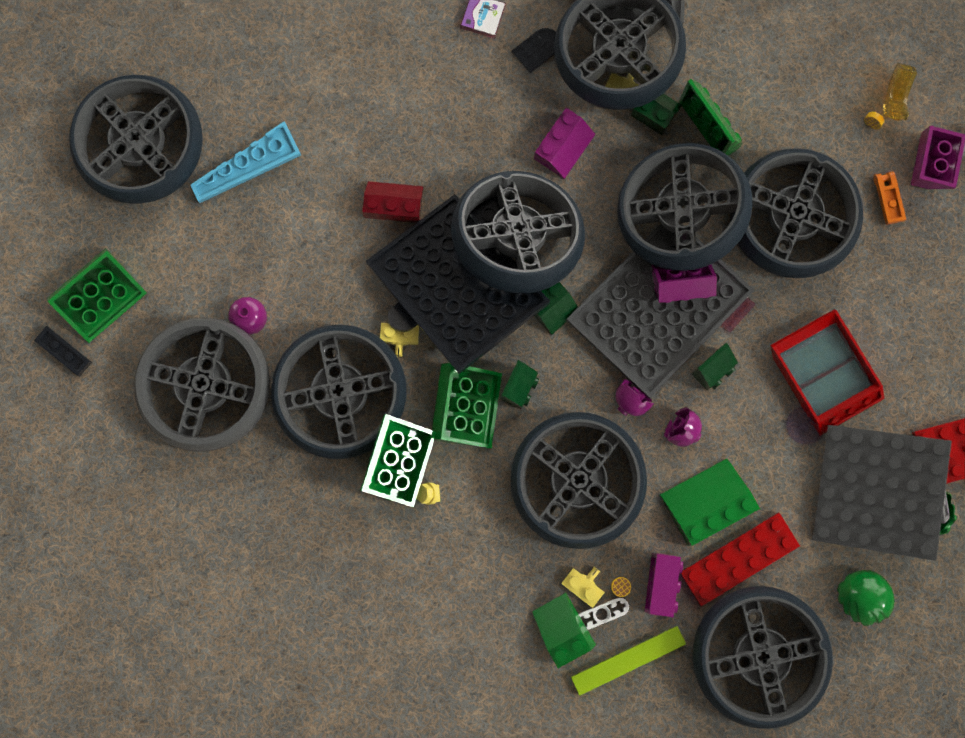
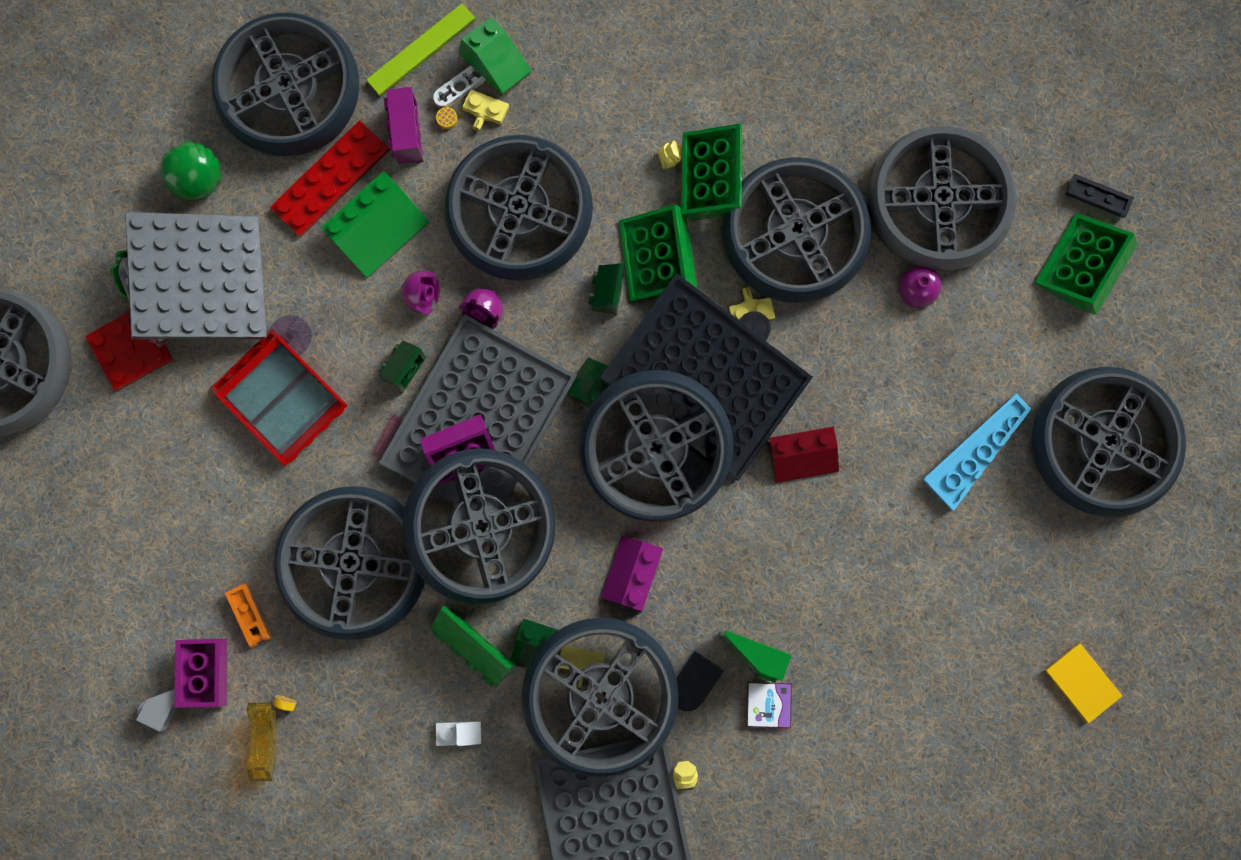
camera: 165 degrees right, 0 degrees up
(483, 42) = (761, 659): none -> green slope
(736, 60) = (458, 733): none -> white slope

